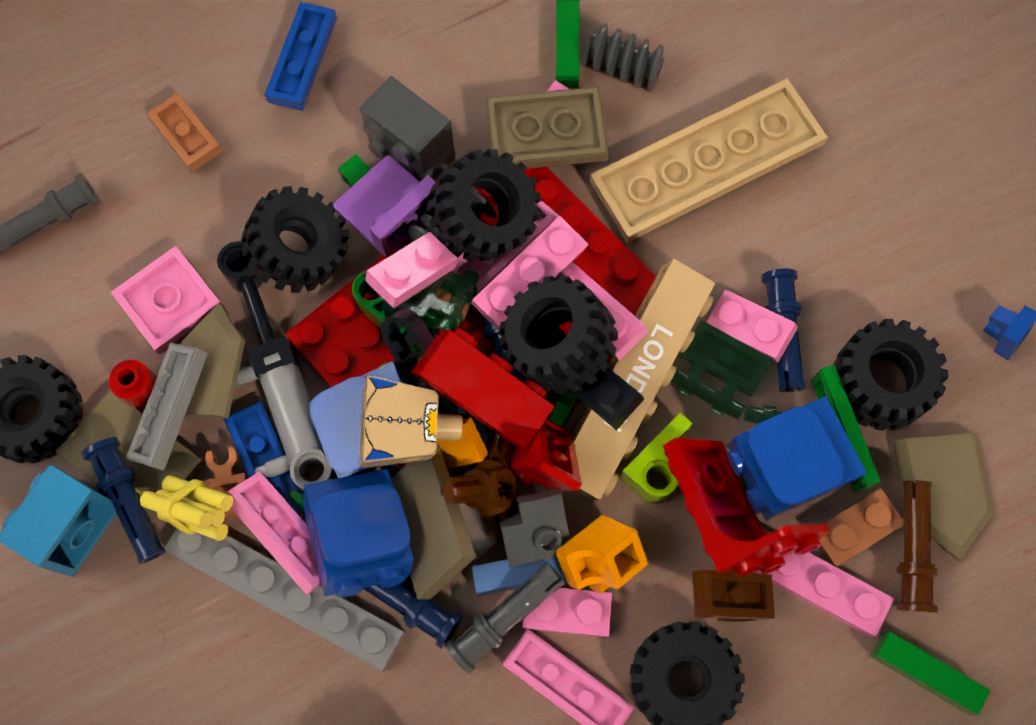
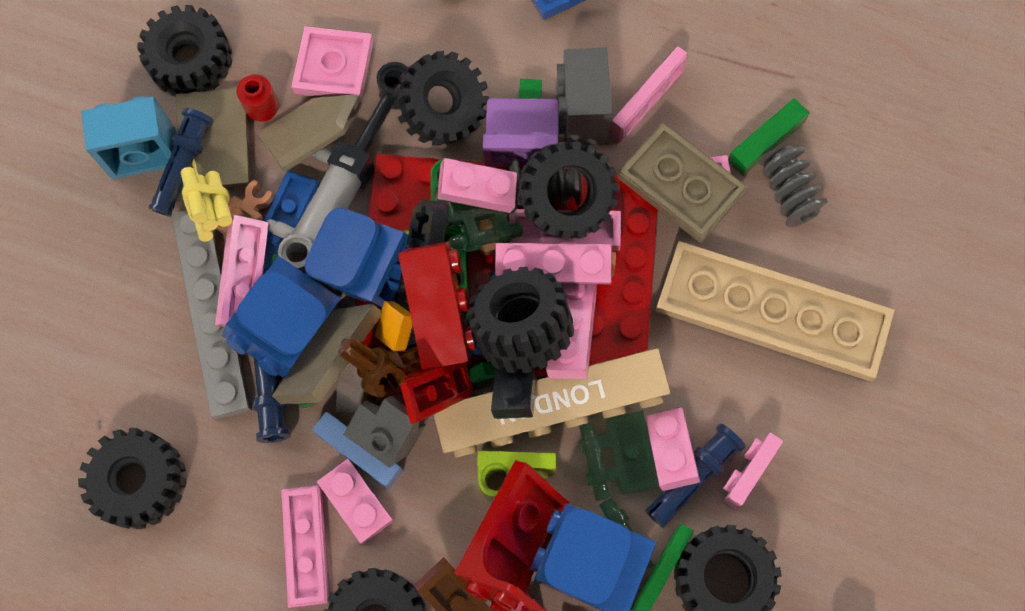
camera: 50 degrees right, 0 degrees up
(167, 406) = (259, 128): light grey plate -> none
(401, 423) = (362, 275): tan torso -> none
(448, 86) = (648, 95): none -> bright pink tile
(490, 629) = (294, 460): dark grey pin -> none
(602, 556) = (403, 486): light orange brick -> none
(823, 295) = (759, 457): none -> bright pink plate

